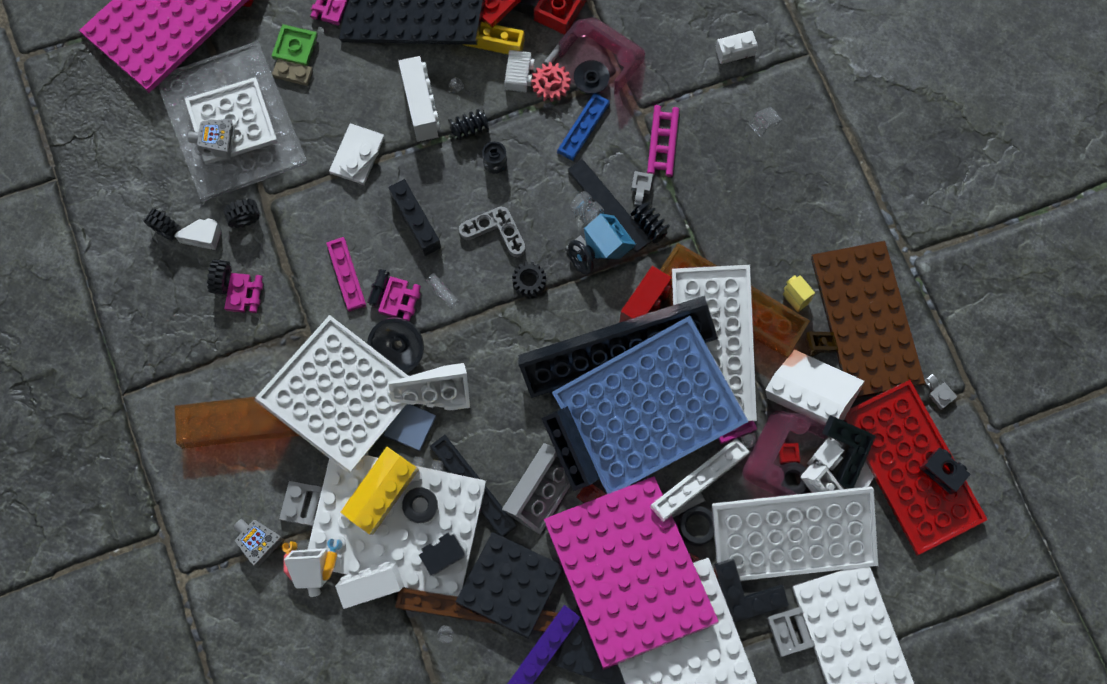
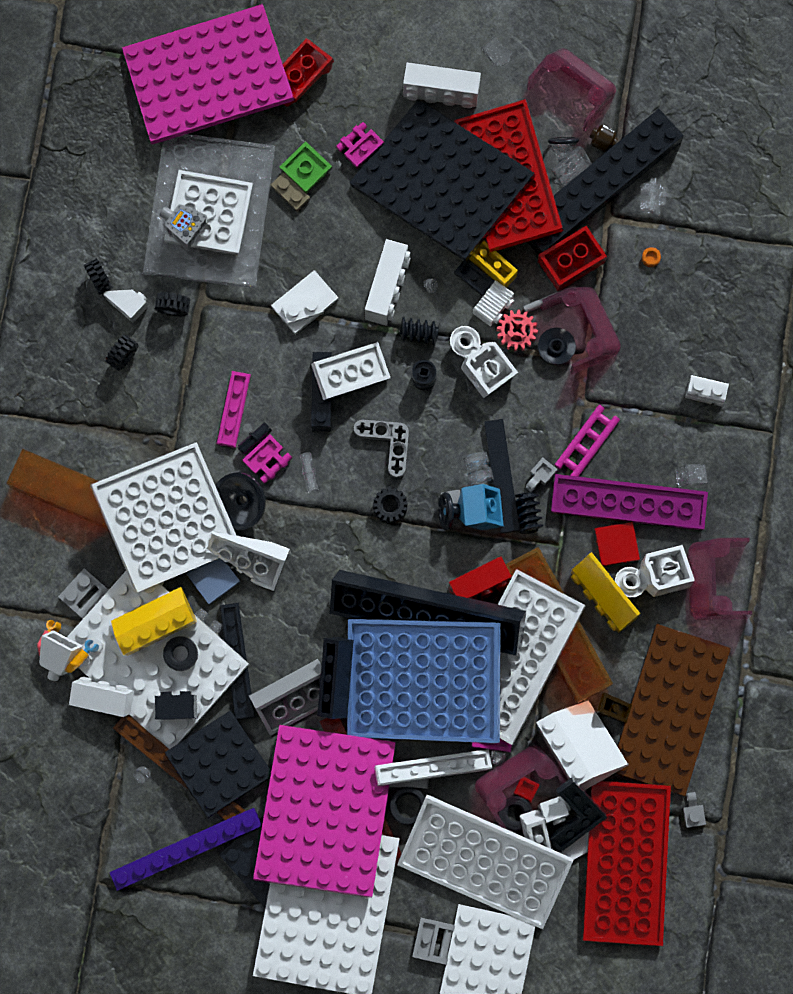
camera: 30 degrees right, 5 degrees up
(238, 290) = (132, 373): dark pink plate -> none
(256, 541) = (28, 605): light grey torso -> none
(430, 185) = (350, 370): none -> white plate
(489, 59) = (474, 277): none -> black plate
(540, 123) = (484, 364): none -> white brick
(583, 126) = (522, 388): blue tile -> none
(727, 169) = (629, 502): none -> magenta plate
(738, 208) = (617, 544): none -> red tile
(747, 606) = (412, 899): black plate -> none
(756, 250) = (605, 593): none -> yellow slope
(788, 212) = (658, 574): none -> white brick
(798, 293) = (619, 652): light yellow brick -> none
(829, 197) = (702, 593): none -> clear pink windscreen
(933, 468) = (641, 873): black brick -> none

